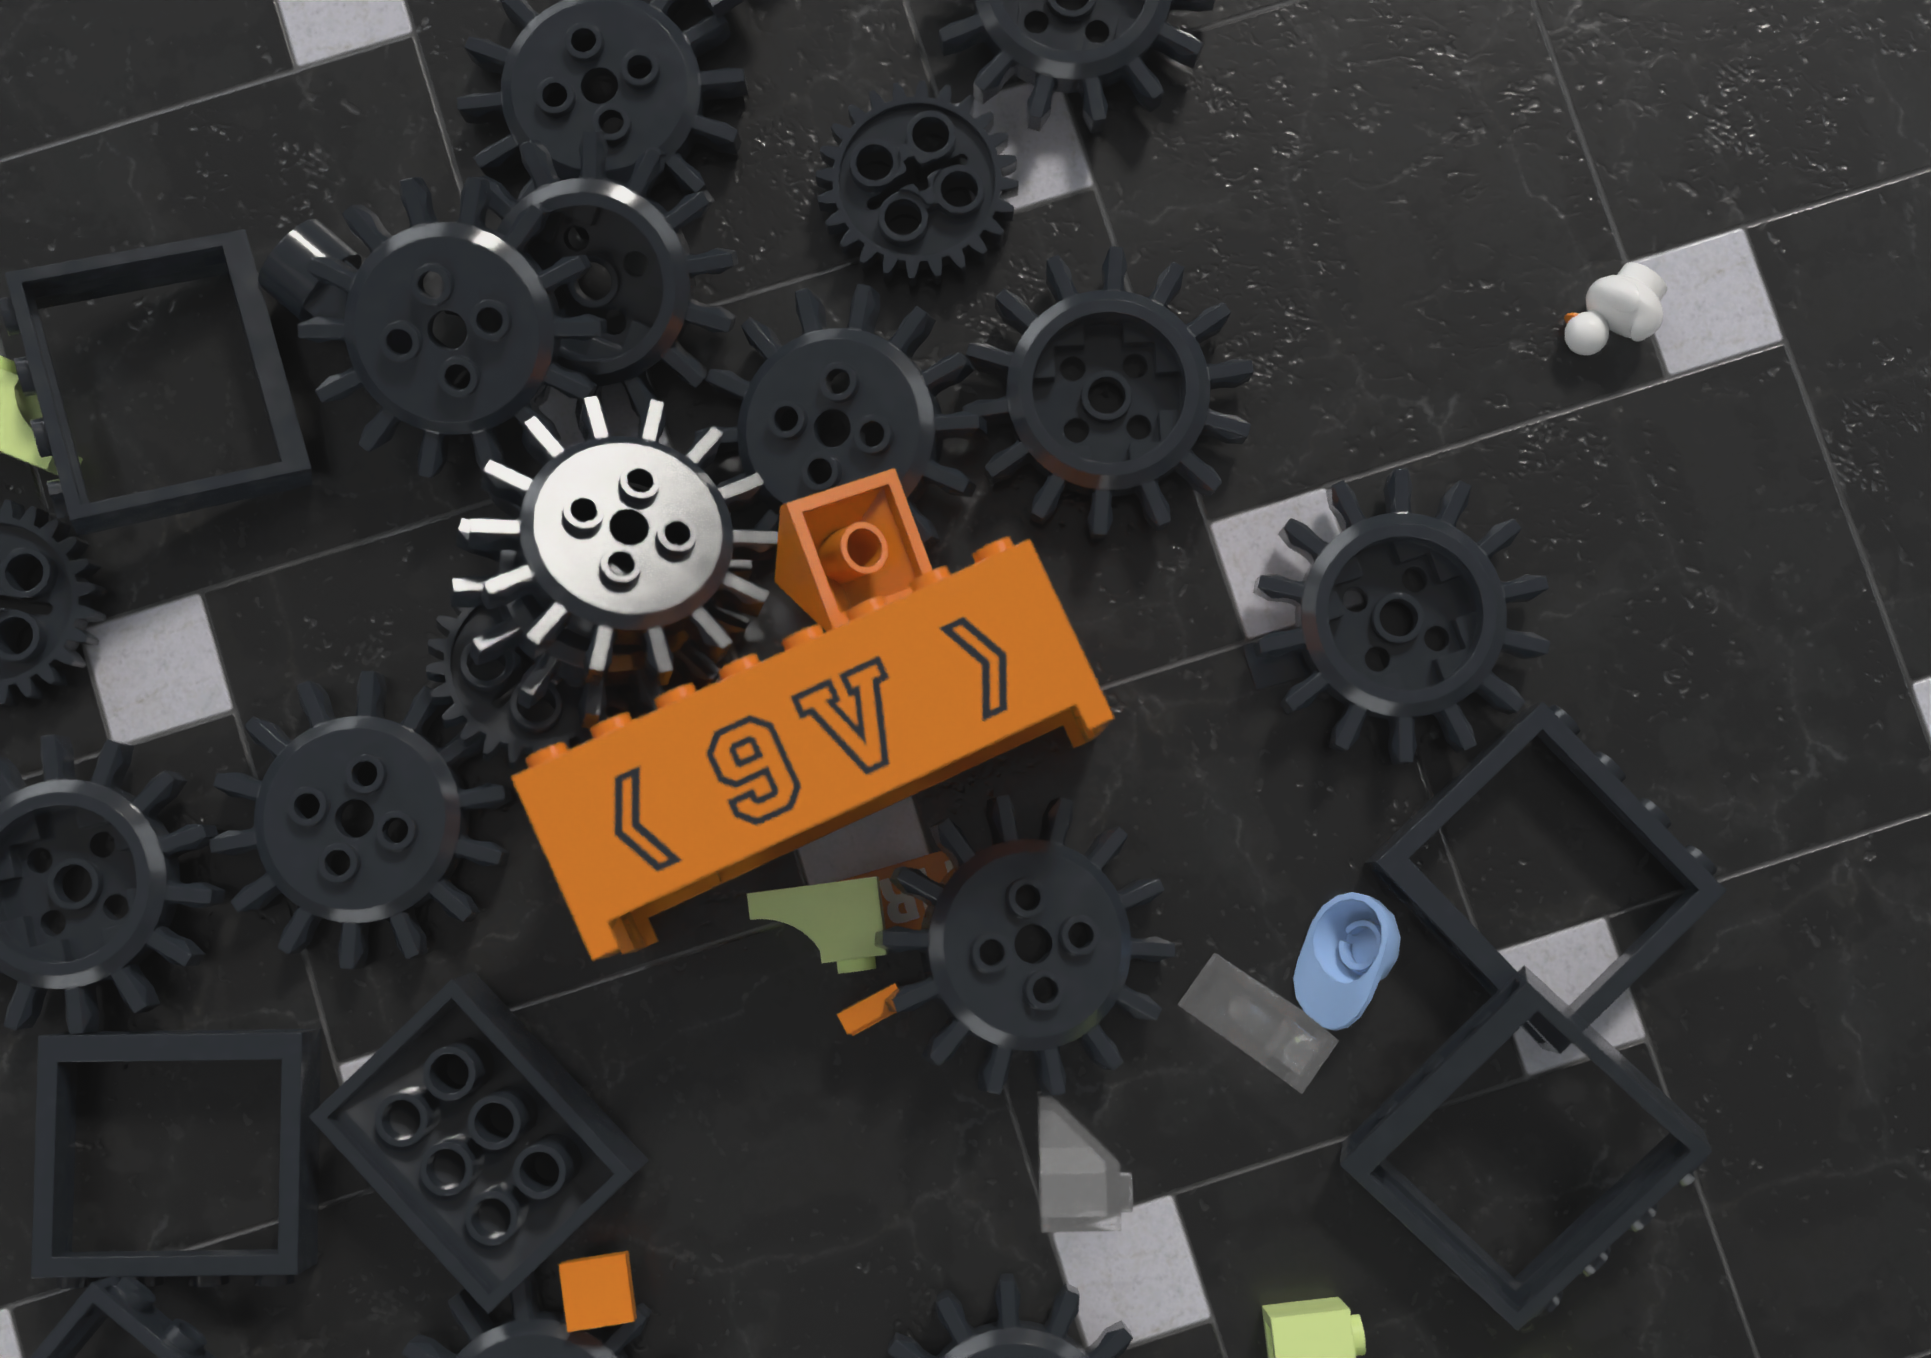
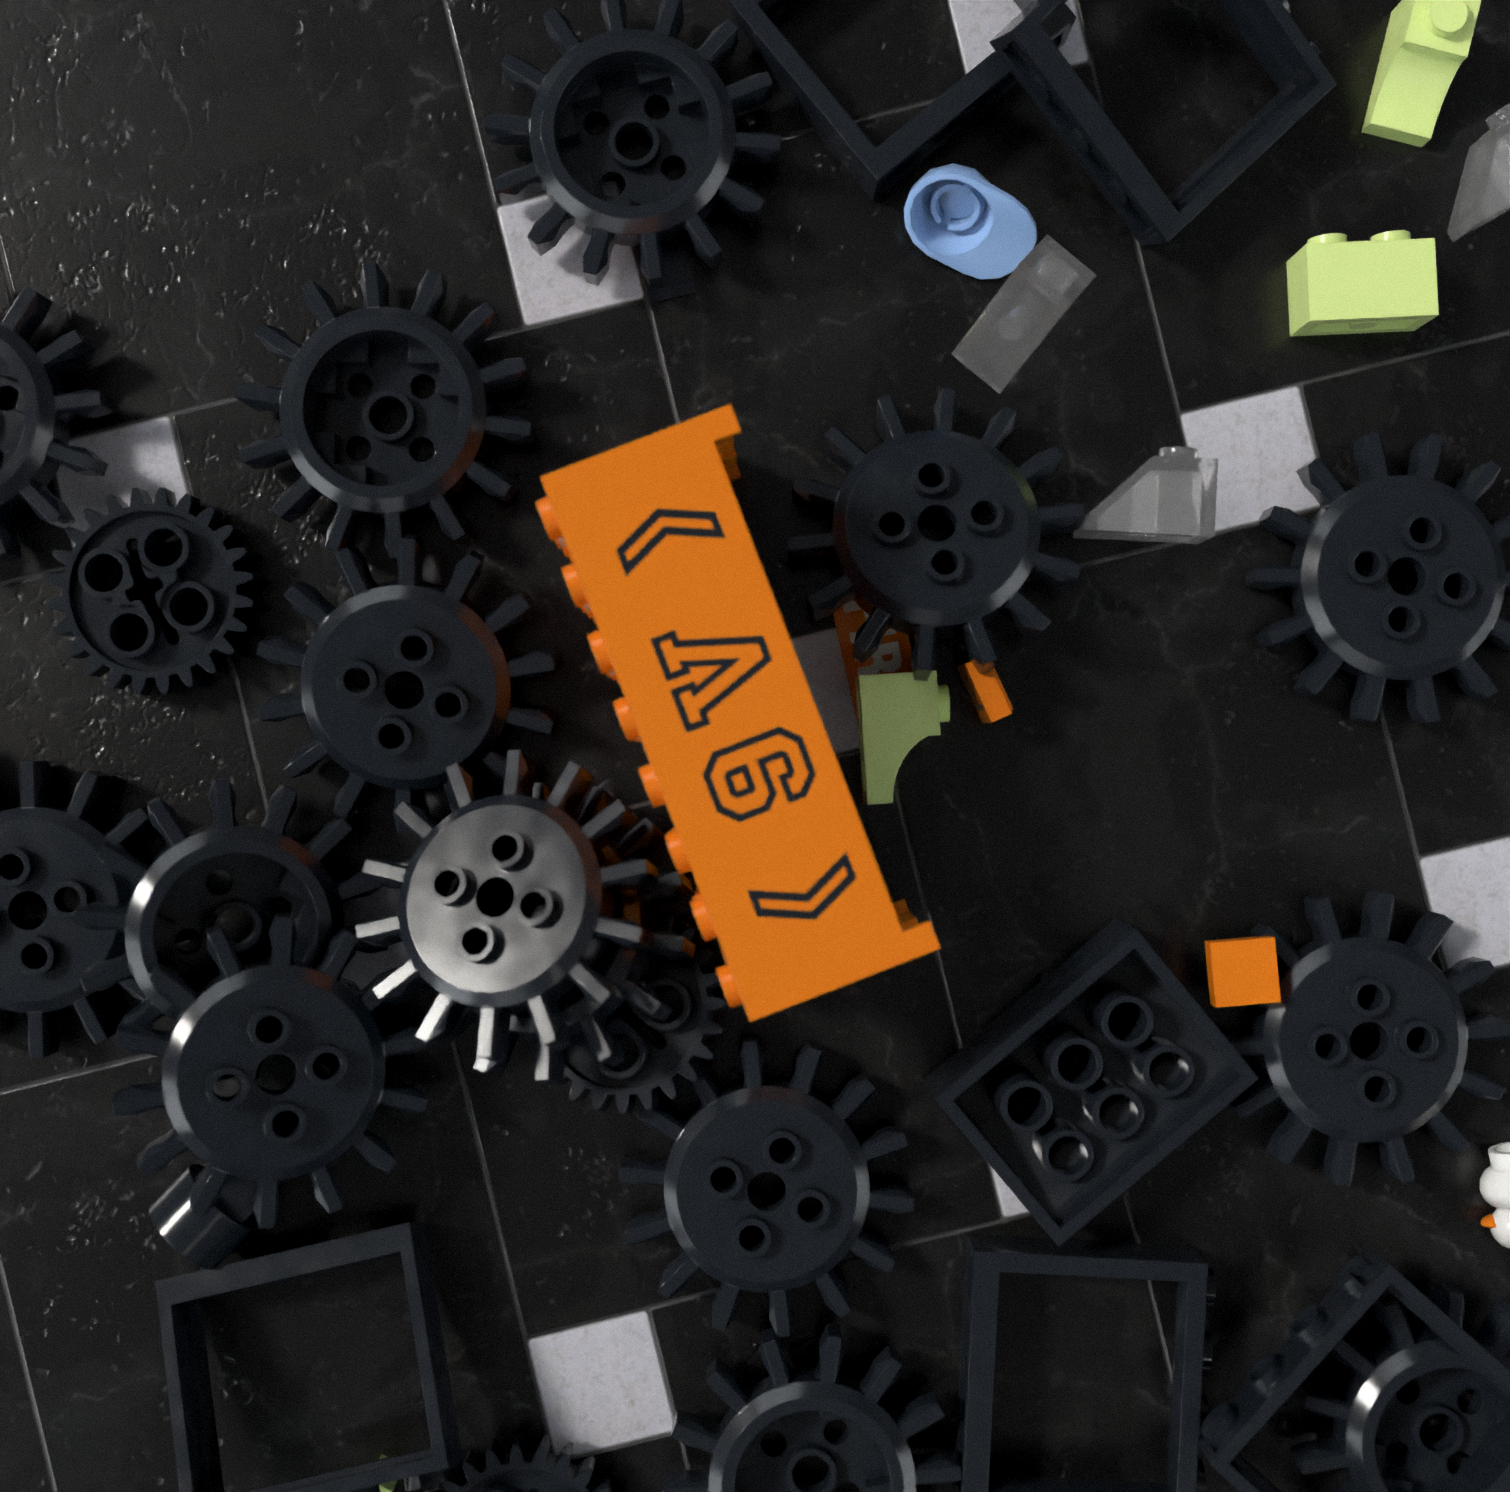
camera: 85 degrees left, 5 degrees up
(848, 548) = (534, 675): orange slope -> none

